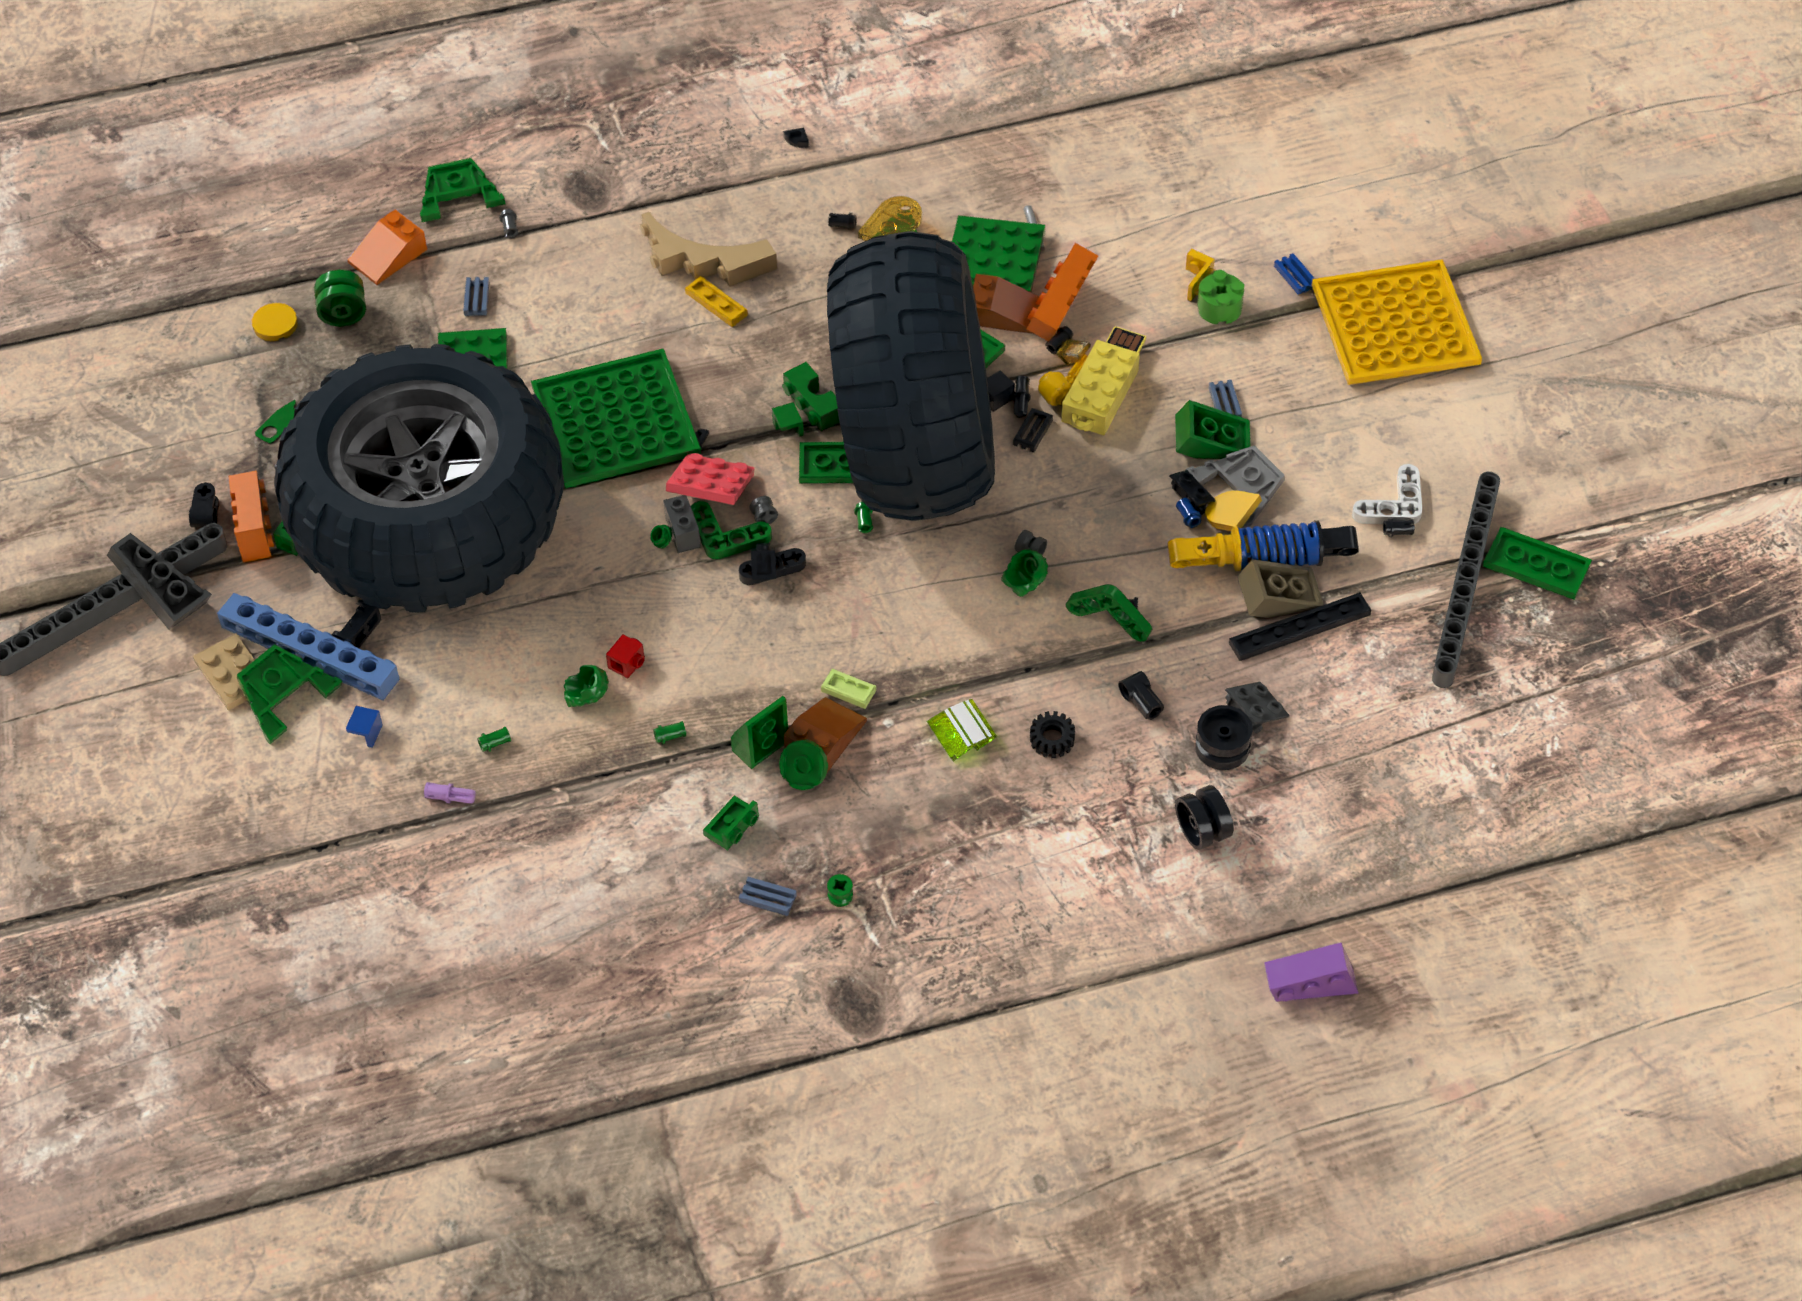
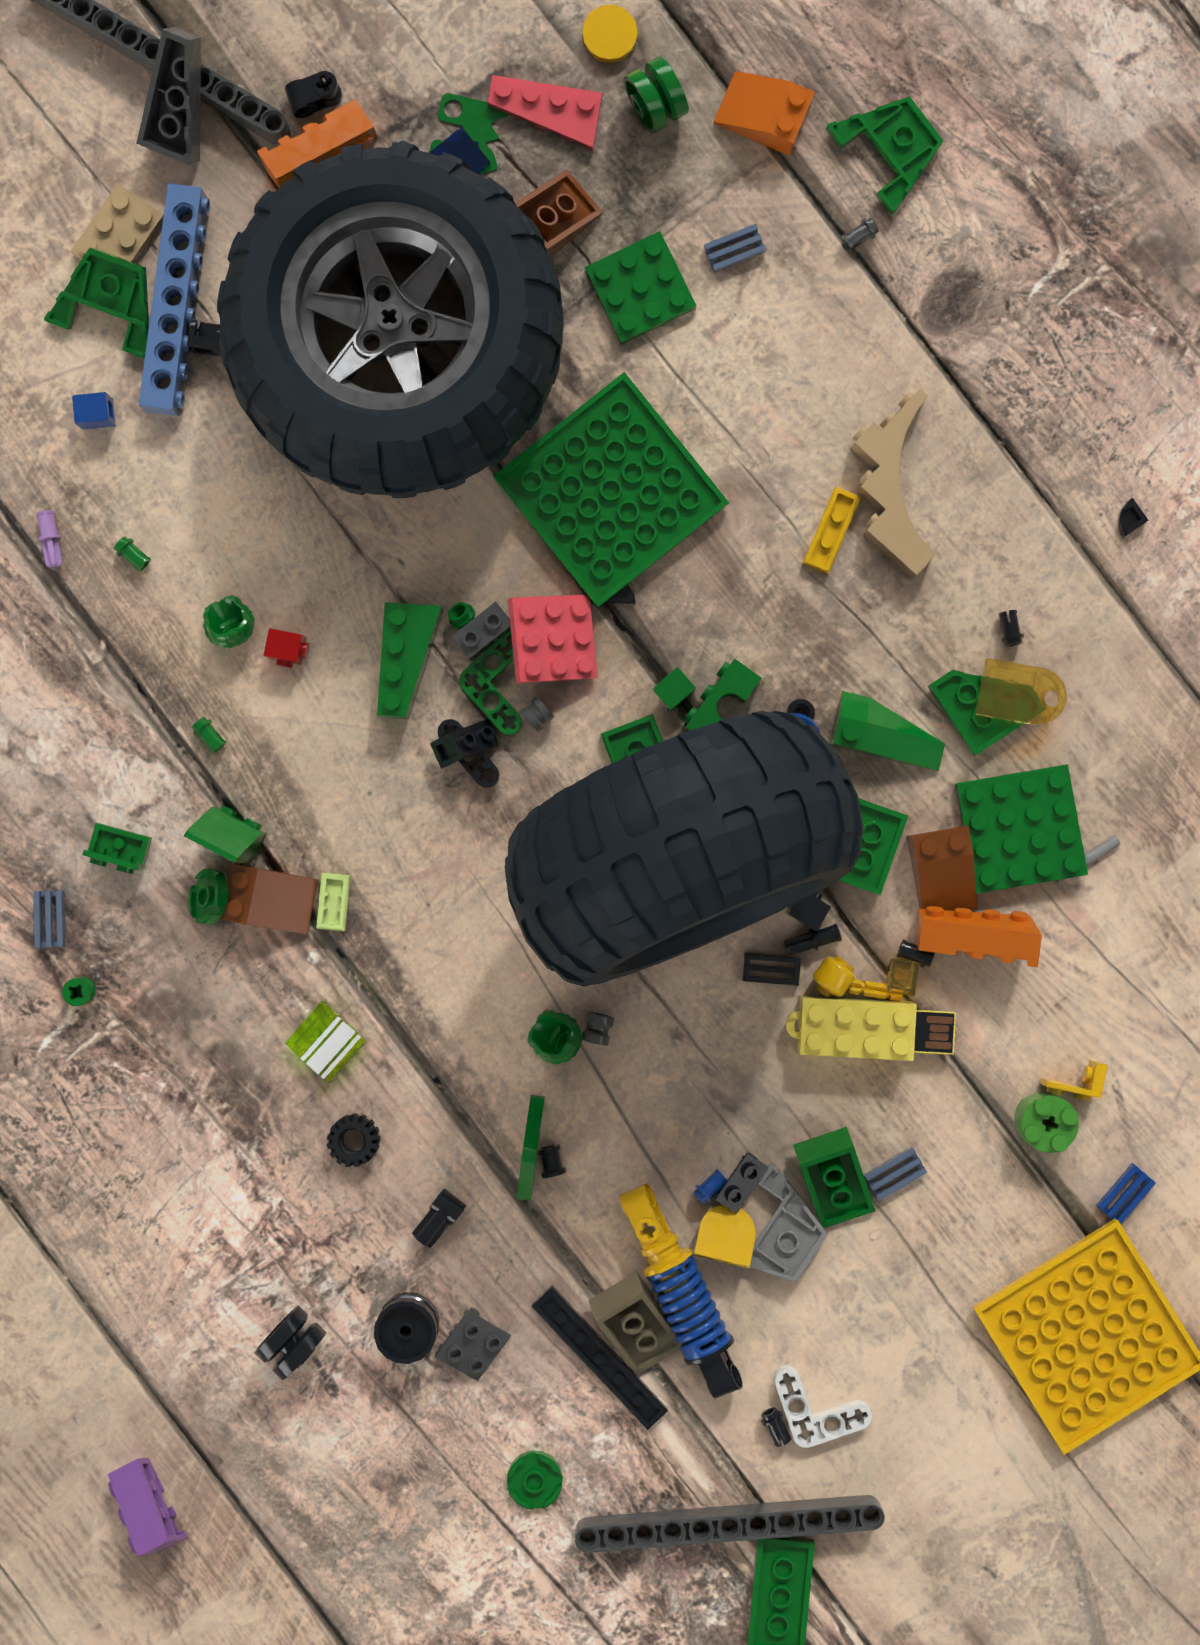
camera: 65 degrees right, 35 degrees up
(305, 372) = (550, 107): none -> coral wing
(674, 579) = (405, 650): none -> green wedge
(1387, 699) = (534, 1480): none -> green tile

